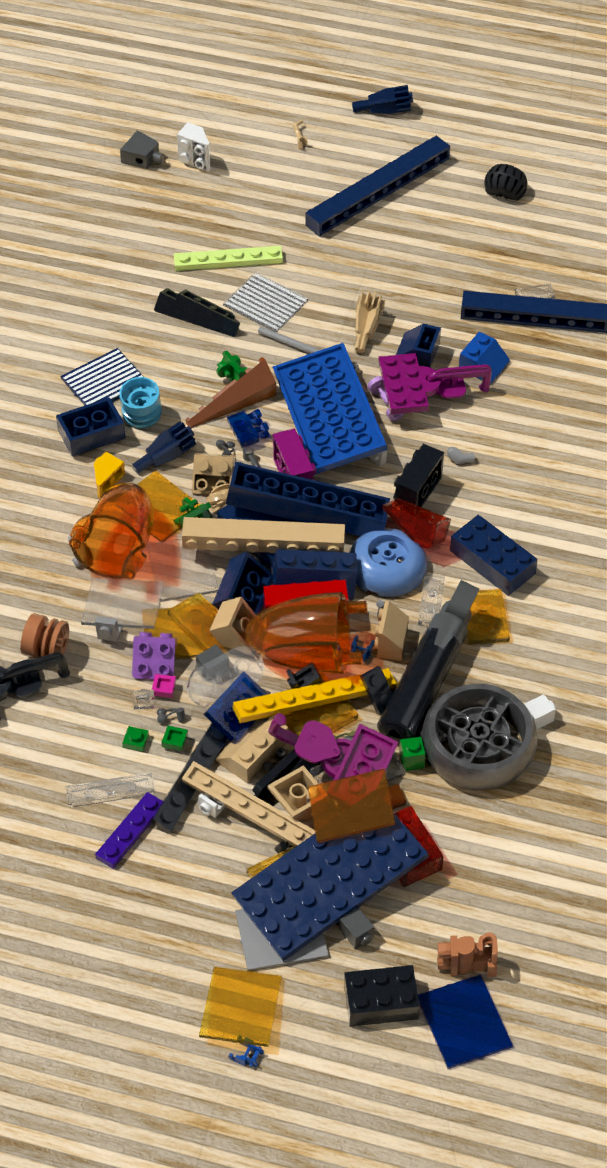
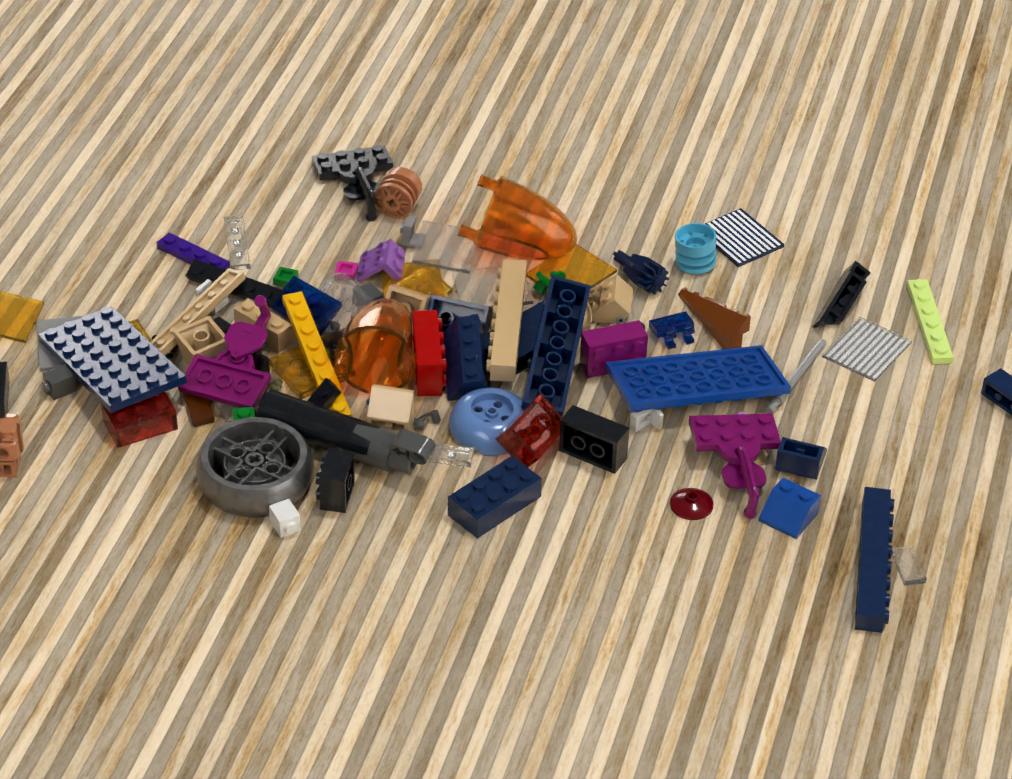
camera: 90 degrees right, 10 degrees down
(90, 426) = (660, 217): dark blue brick -> none
(107, 472) = (606, 233): yellow slope -> none
(135, 739) = (290, 257): green plate -> none
(143, 699) = (331, 258): clear plate -> none
(162, 718) = (315, 278): dark grey piece -> none
(221, 444) = (638, 313): dark grey piece -> none
(230, 367) = (759, 314): green hips -> none
(351, 805) = (170, 359): clear orange piece -> none
(368, 314) = (839, 416): tan piece -> none
(459, 457) = (638, 485): light grey arm -> none
(475, 426) = (691, 503): none -> dark red dish
(488, 619) = (417, 492): clear yellow tile -> none
(494, 666) = (335, 480): none -> black brick

